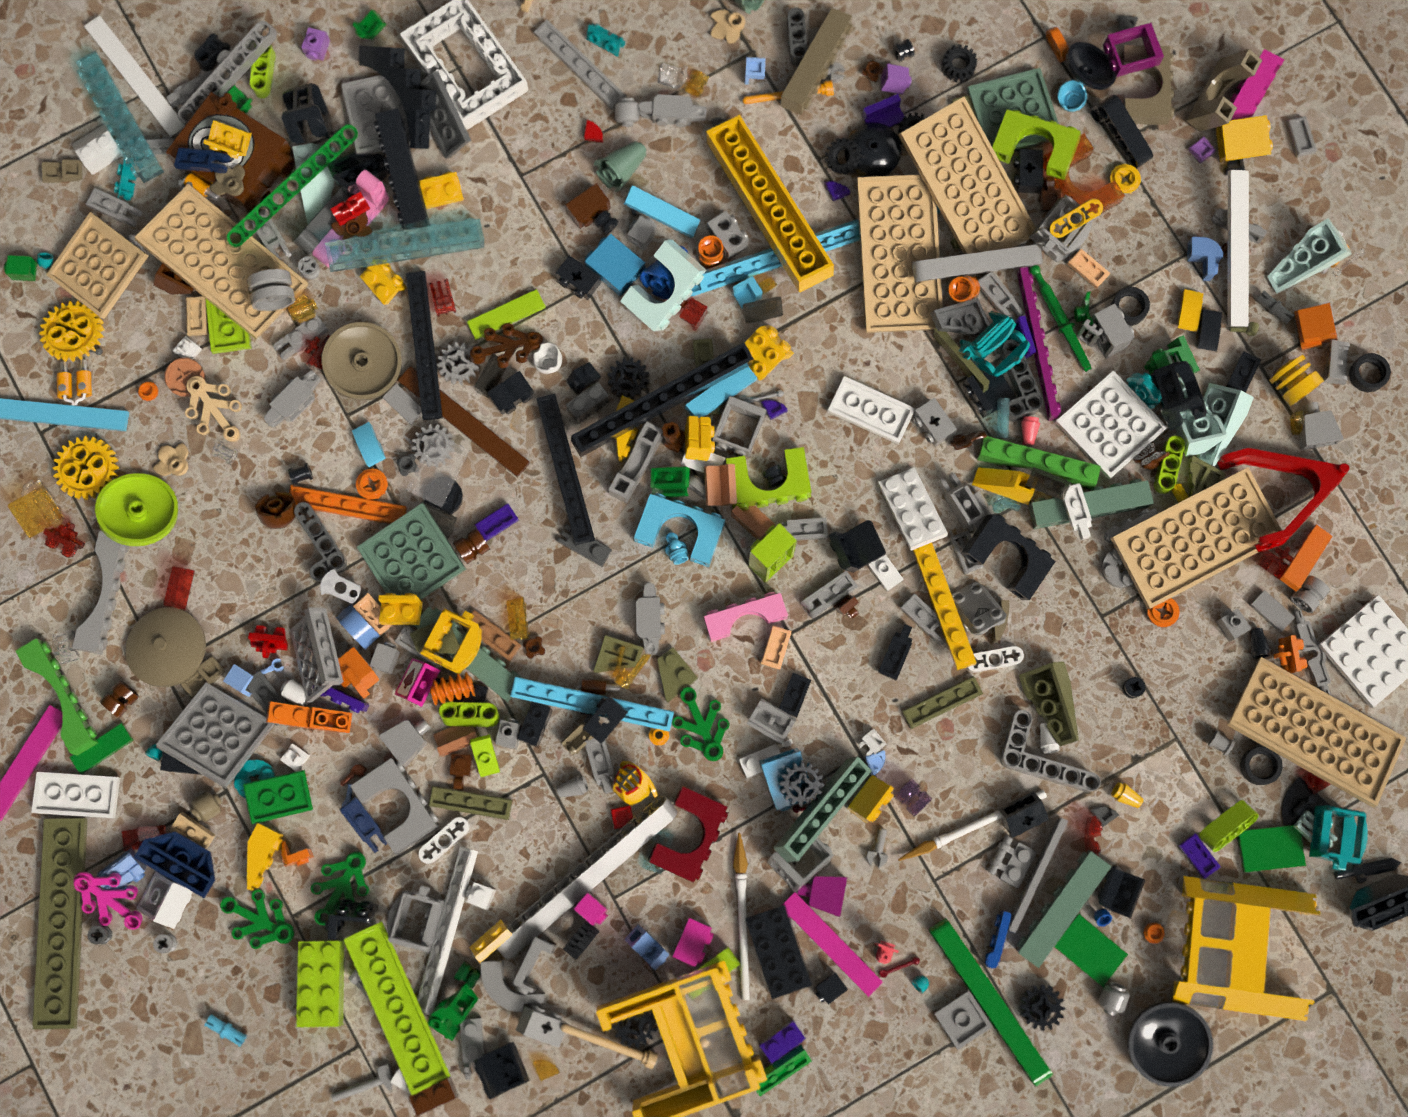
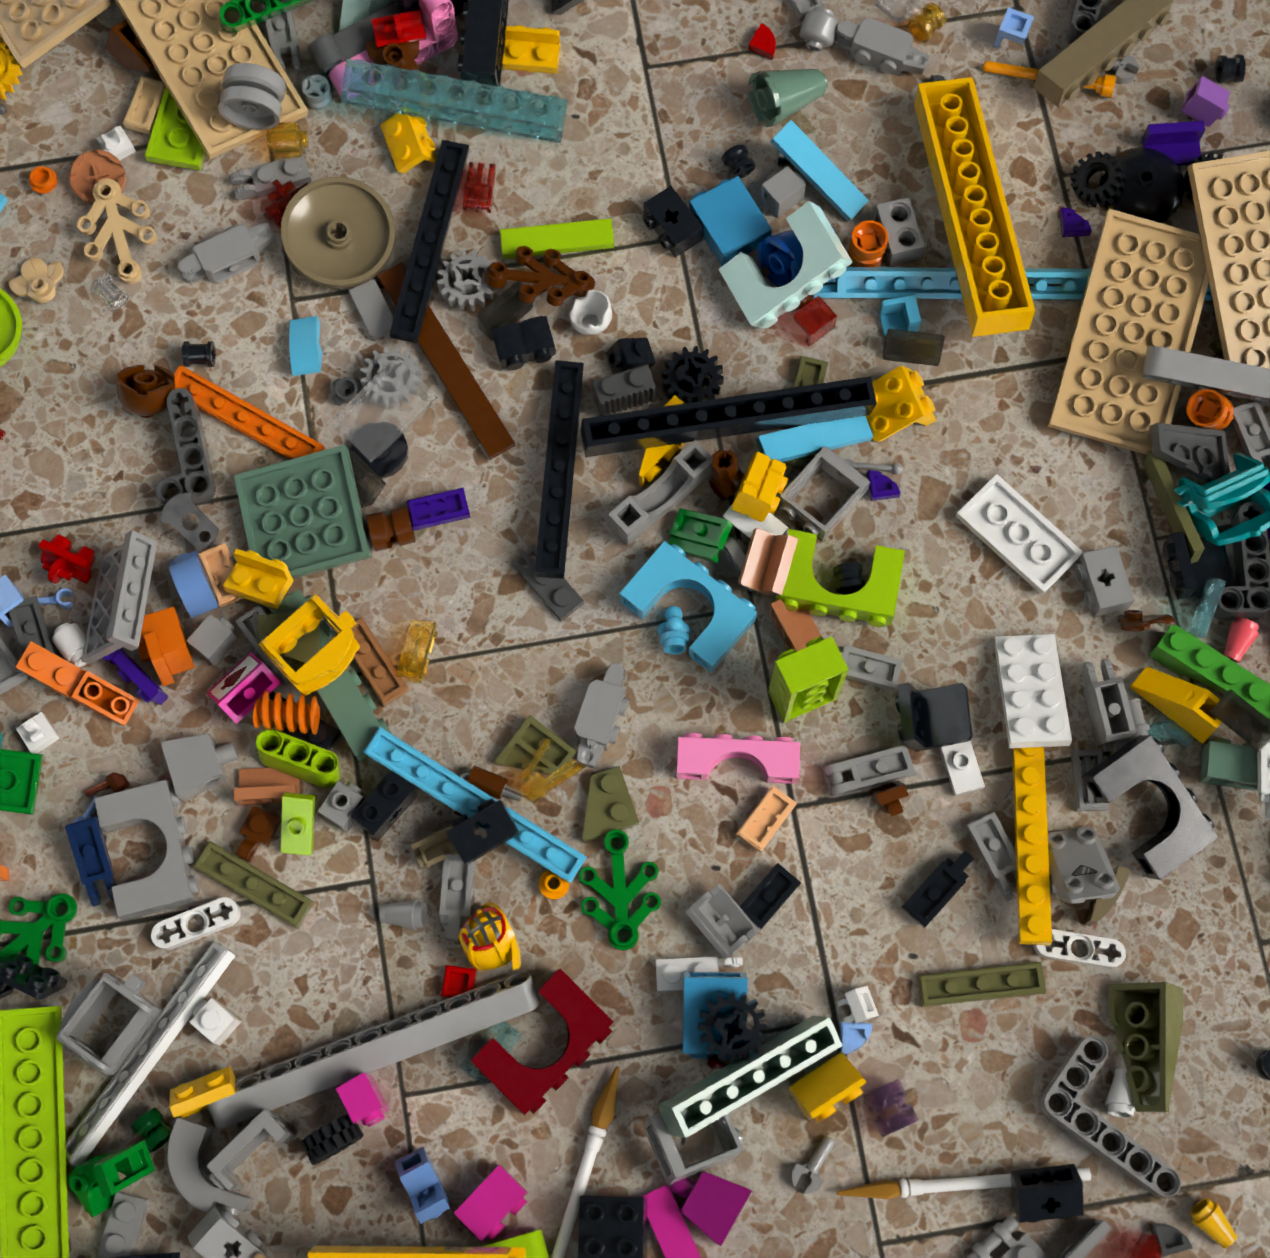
camera: 20 degrees right, 5 degrees down
(363, 481) = (279, 393): orange gear -> none
(528, 644) = (420, 690): reddish brown plate -> none
(588, 206) = (720, 131): reddish brown brick -> none
(767, 285) = (931, 316): clear yellow tile -> none
(873, 65) = (1177, 76): reddish brown plate -> none

